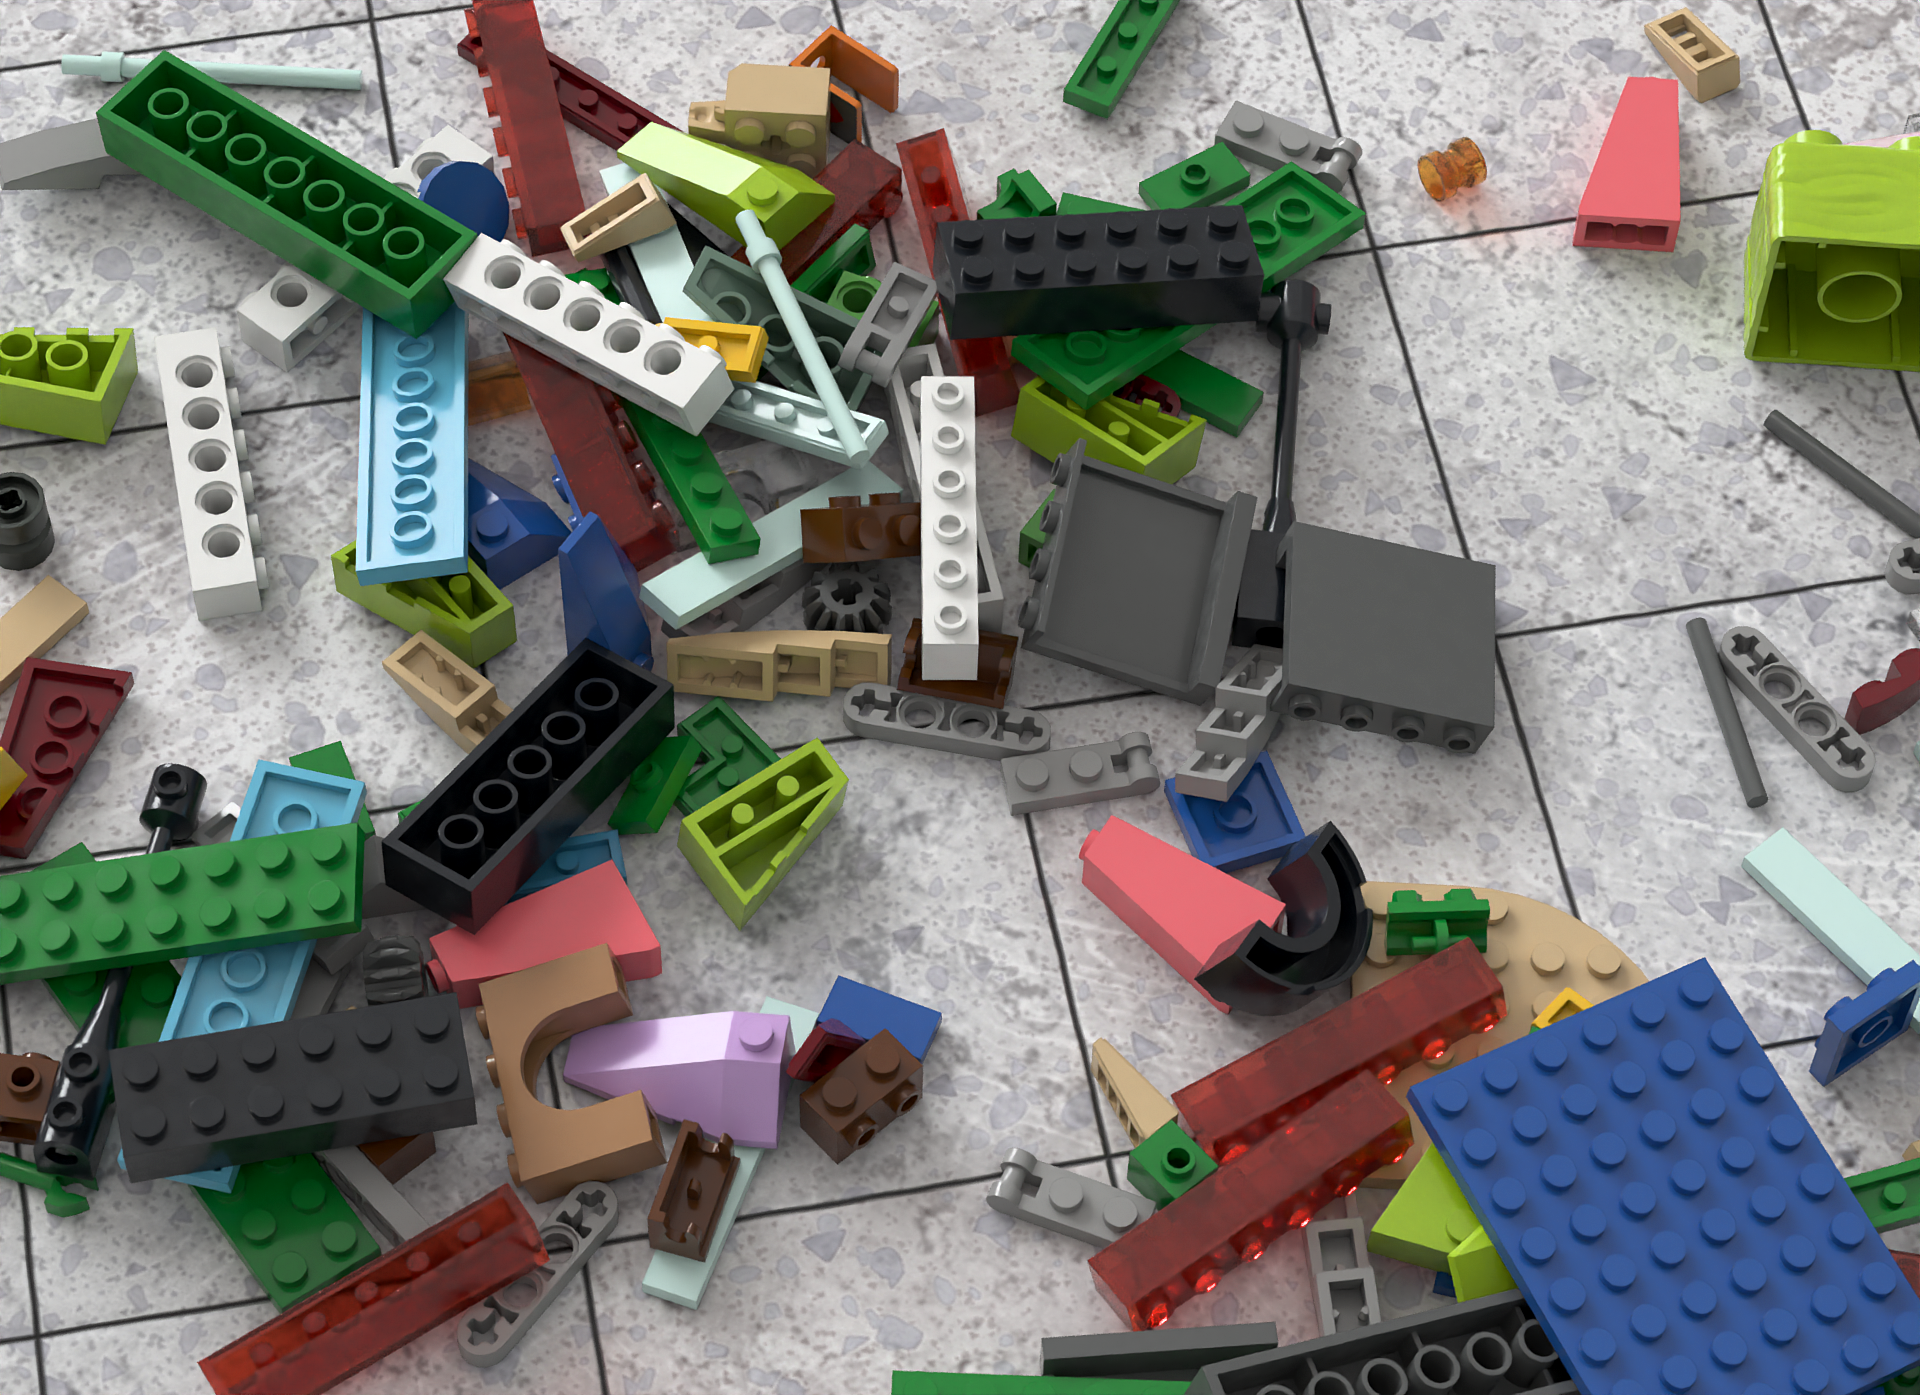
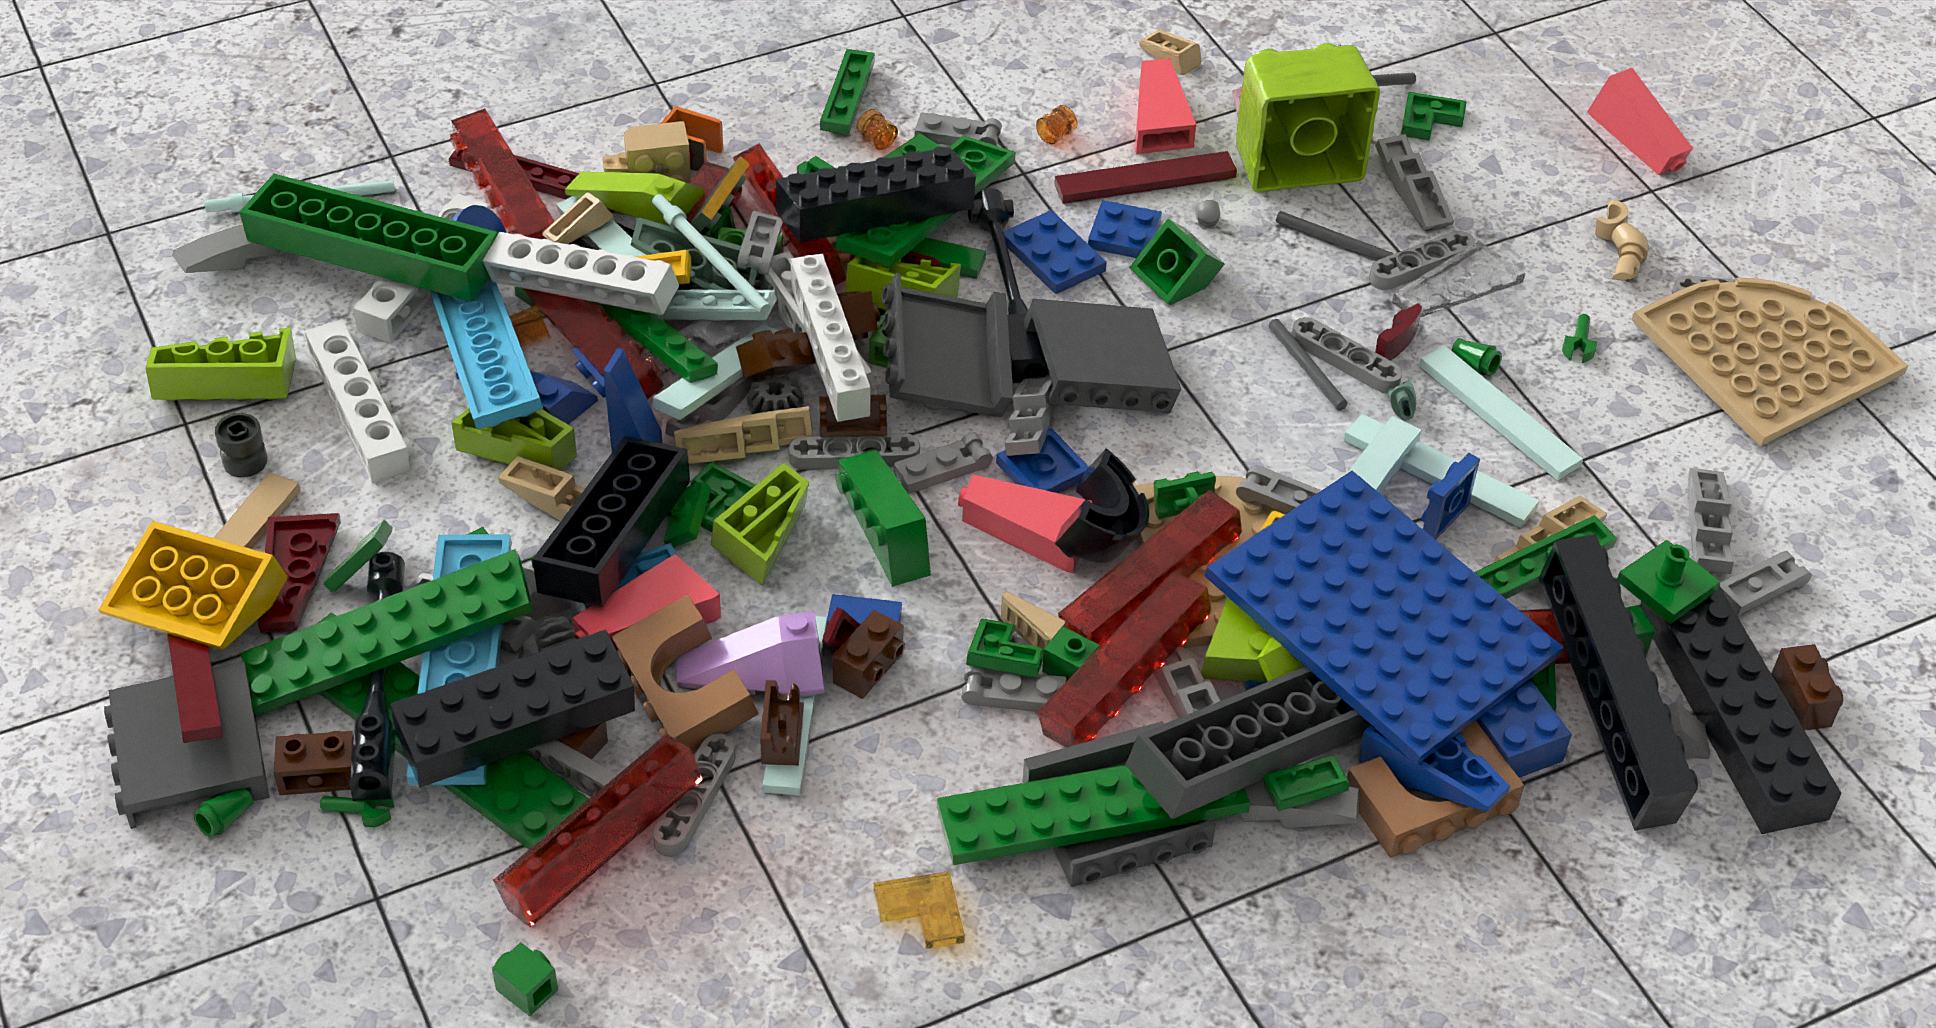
camera: 15 degrees left, 10 degrees down
(153, 753) = (365, 550): none -> green tile
(853, 219) = (721, 196): none -> plate
(955, 855) = (886, 516): none -> green wedge
(1007, 479) = (859, 312): none -> reddish brown brick
(1058, 1135) = (994, 650): none -> green tile
(1151, 118) = (878, 130): none -> clear orange wheel
(1375, 412) = (1054, 252): none -> blue plate
(1505, 393) = (1123, 228): none -> blue plate
(1567, 480) = (1176, 263): none -> green slope
(1572, 297) = (1145, 177): none -> dark red tile
(1595, 955) = (1281, 491): none -> light grey plate
(1652, 391) = (1207, 213): none -> light grey hinge
(1780, 926) = (1386, 453): none -> light aqua slope
(1861, 814) = (1403, 400): none -> sand green piece

